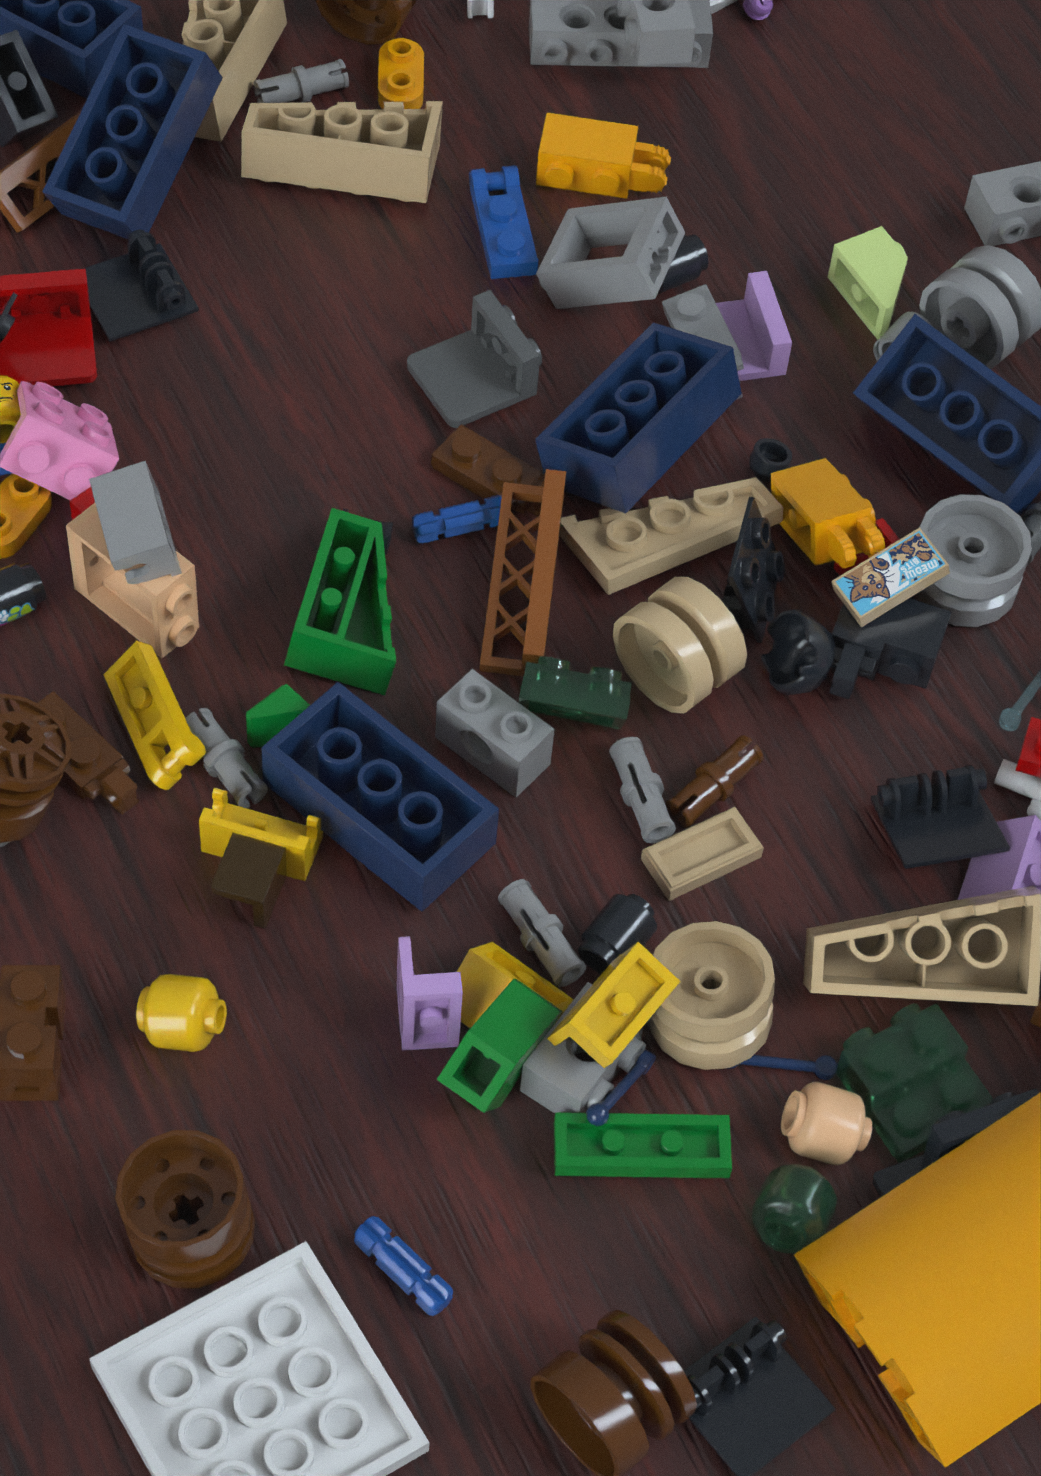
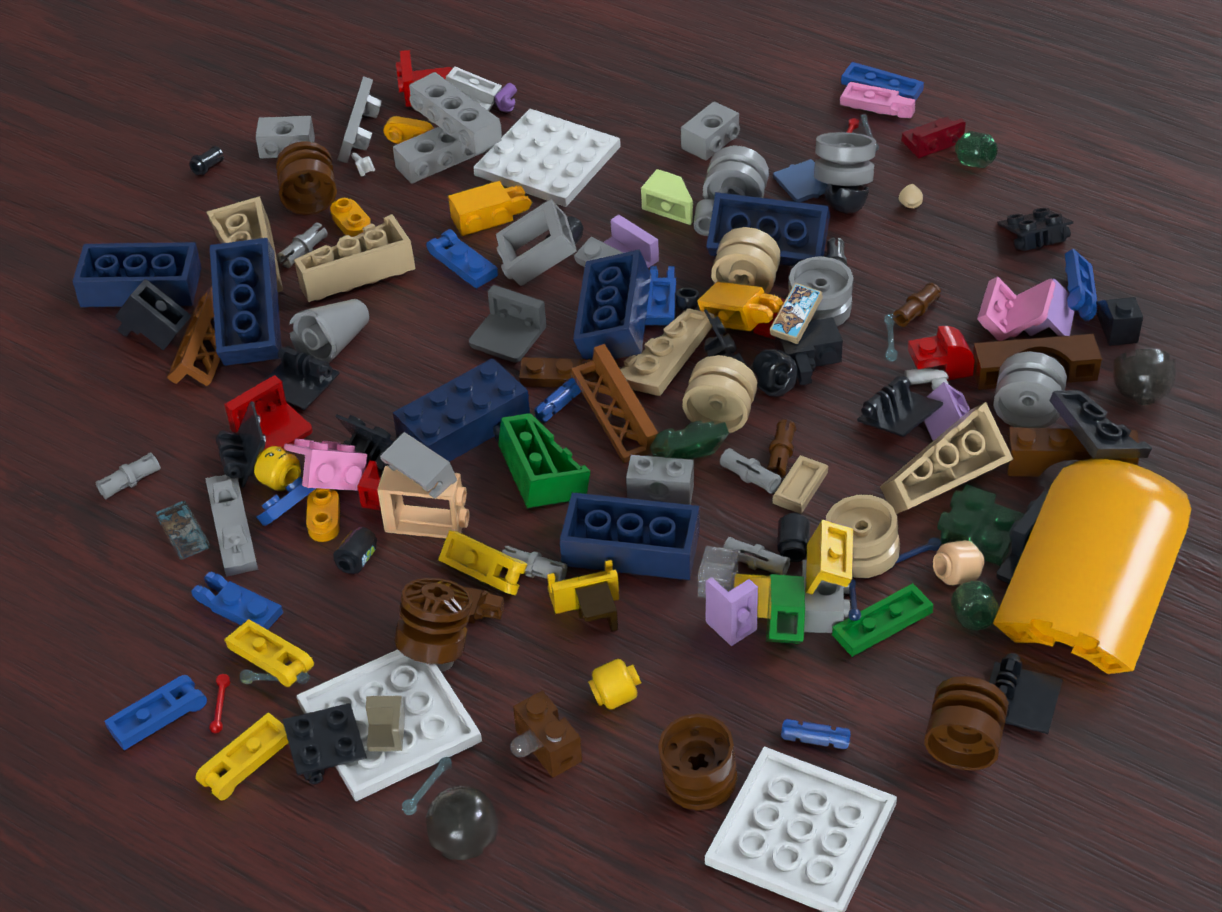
camera: 25 degrees left, 10 degrees down
(140, 439) = (369, 441): none -> black hinge
(228, 234) = (328, 328): none -> light grey cone
(273, 715) = (548, 530): green slope -> none
(301, 464) = (463, 410): none -> dark blue brick
(459, 922) = (720, 565): none -> clear brick
(730, 440) = (661, 298): none -> blue hinge
(752, 122) = (547, 157): none -> white plate
(891, 451) = (747, 258): none -> tan wheel

